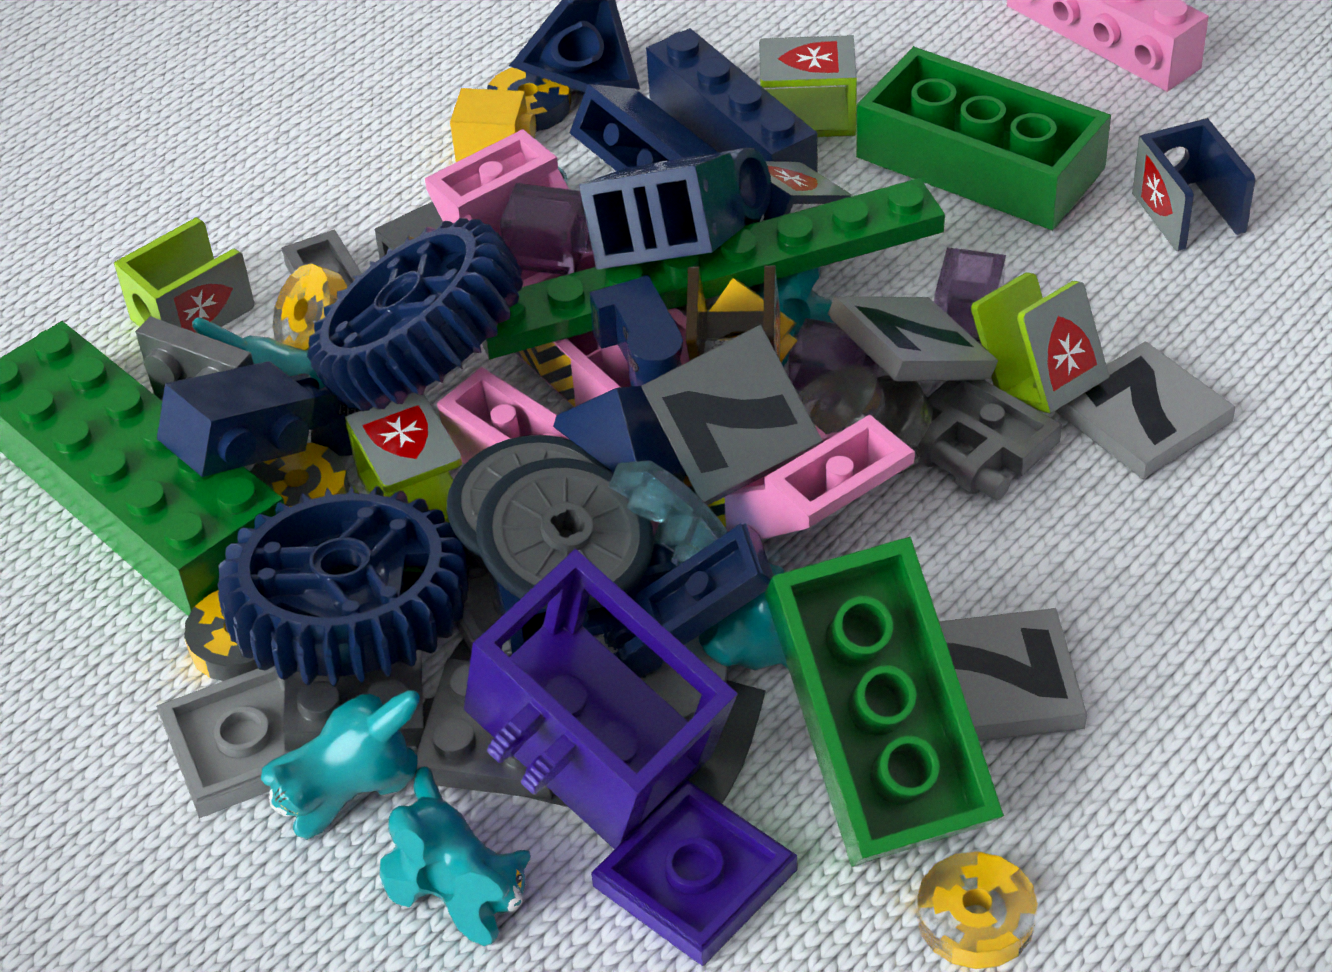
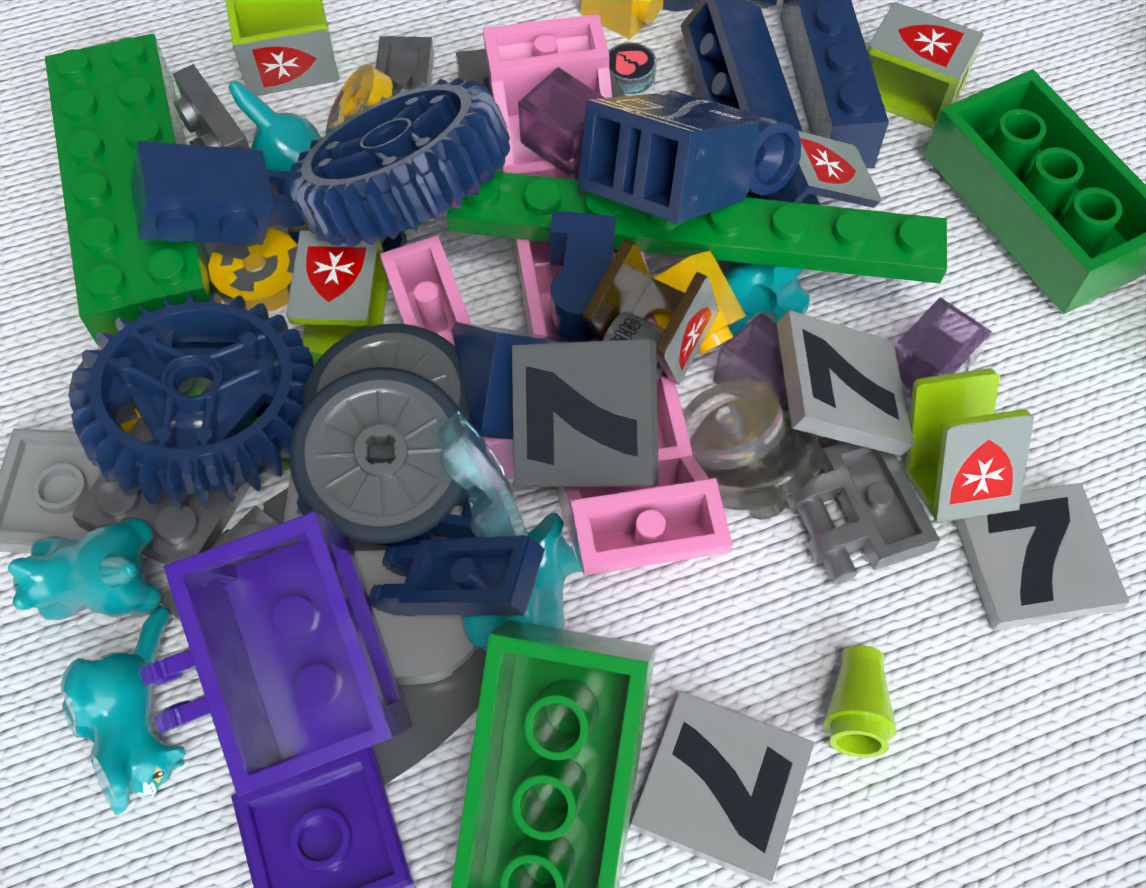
camera: 25 degrees right, 15 degrees up
(1076, 568) = (860, 706): none -> lime cone

